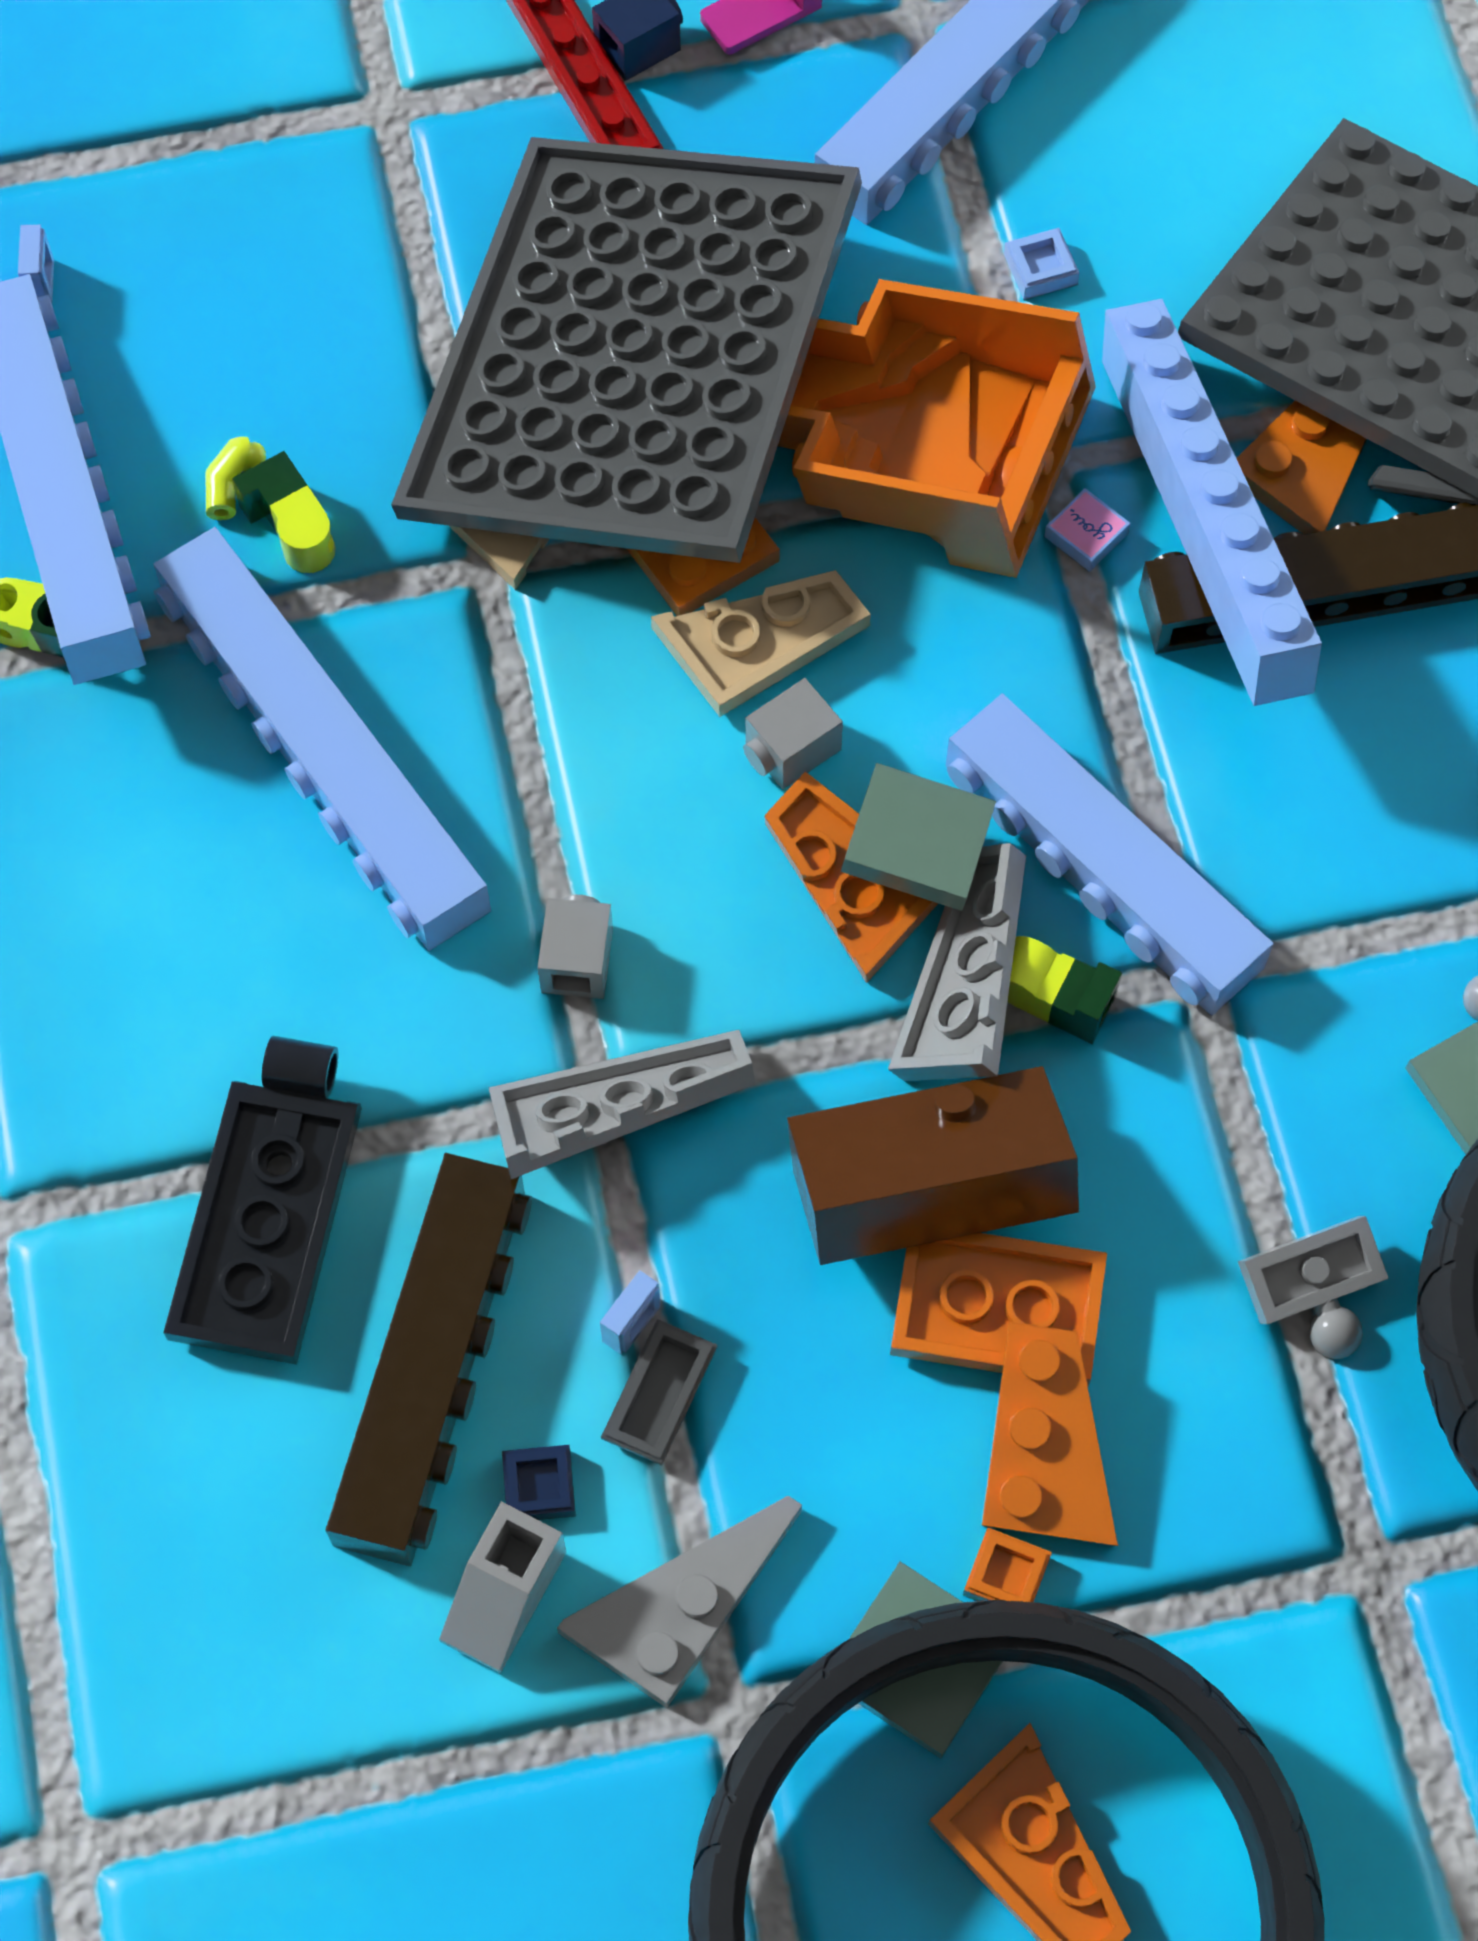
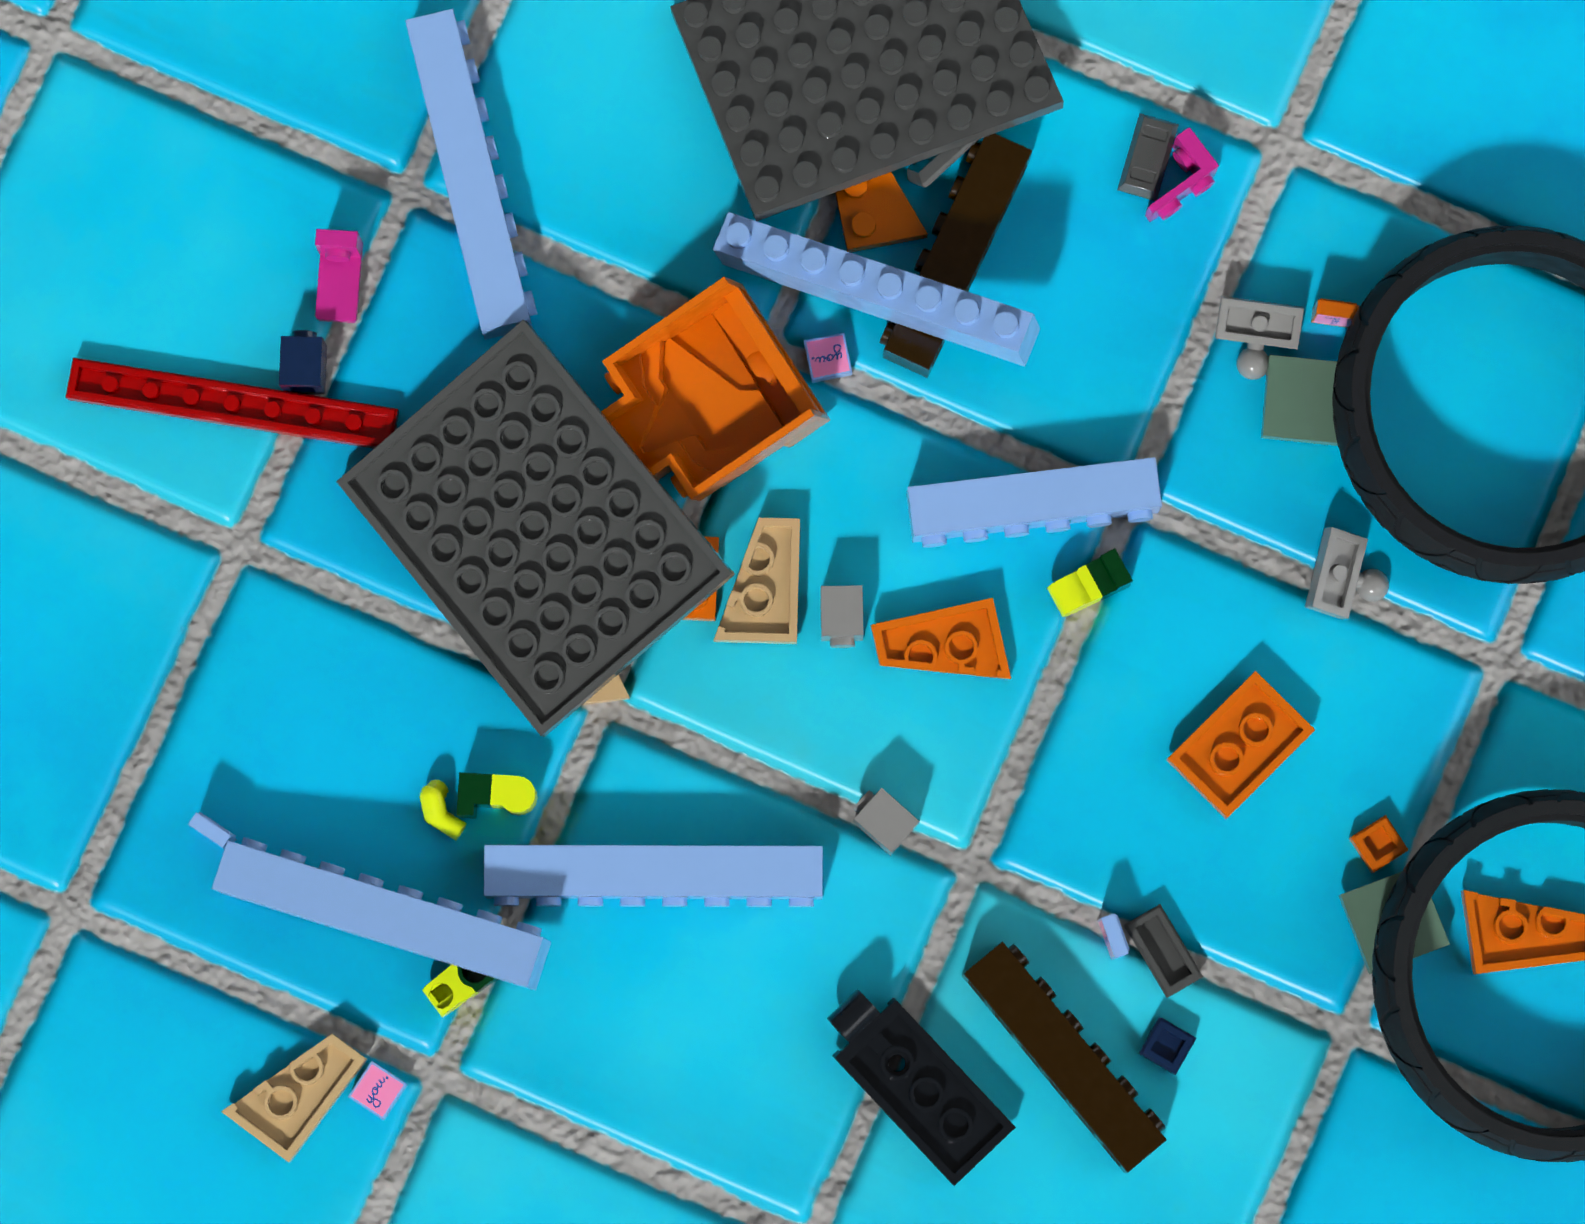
camera: 55 degrees left, 15 degrees up
(502, 1586) = (1216, 1102): light grey slope -> none
(601, 1101) = (987, 871): light grey wing -> none
(670, 1616) = (1283, 1028): light grey wing -> none
(918, 836) = (960, 595): sand green tile -> none
(933, 1165) = (1150, 725): reddish brown brick -> none
(965, 982) = (1054, 630): light grey wing -> none
(1041, 263) = (635, 250): light blue tile -> none
(1045, 1442) = (1330, 777): orange wing -> none

